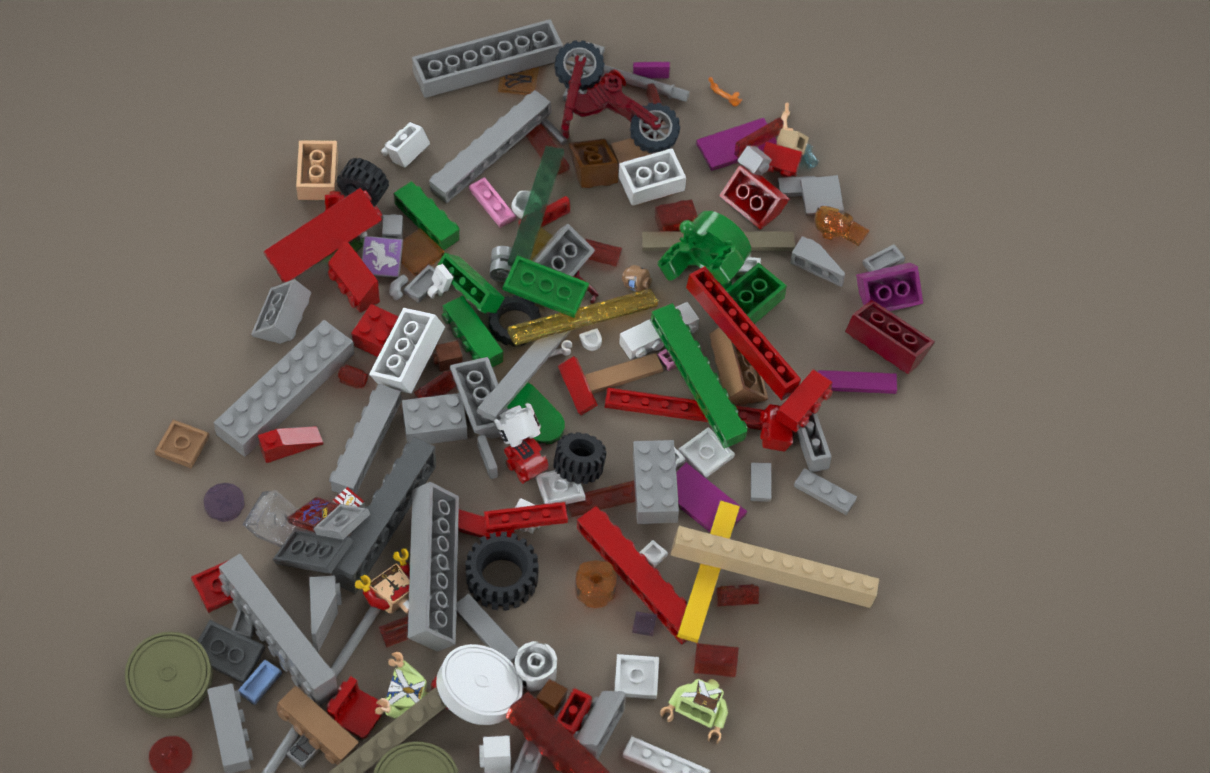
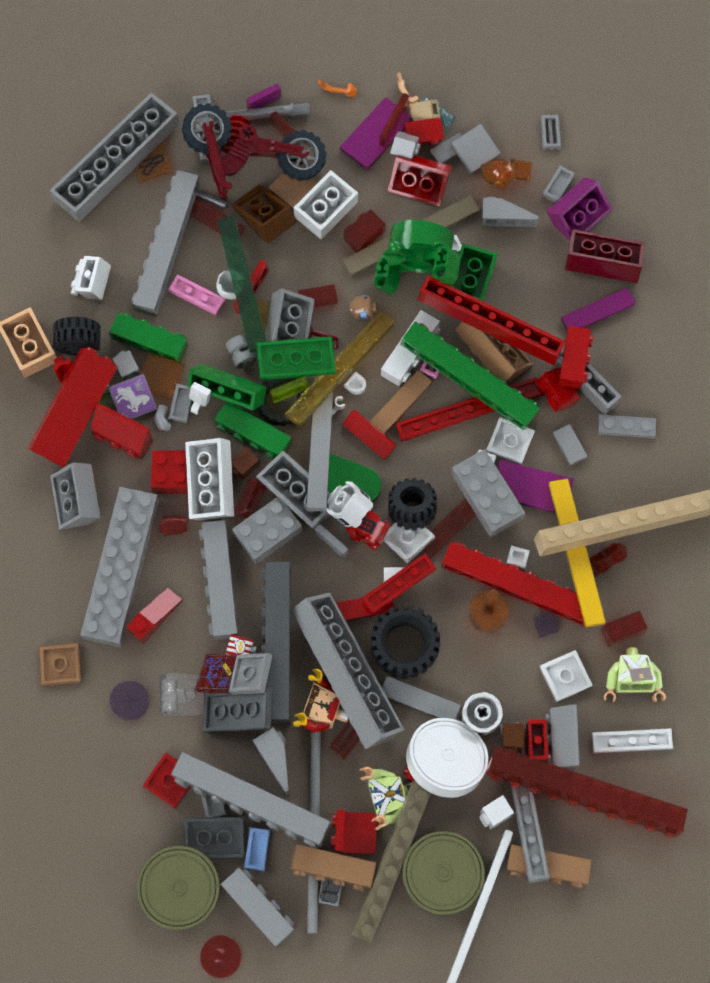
camera: 25 degrees left, 15 degrees up
(524, 310) = (289, 389): none -> clear neon green tile
(897, 225) = (551, 146): none -> light grey tile

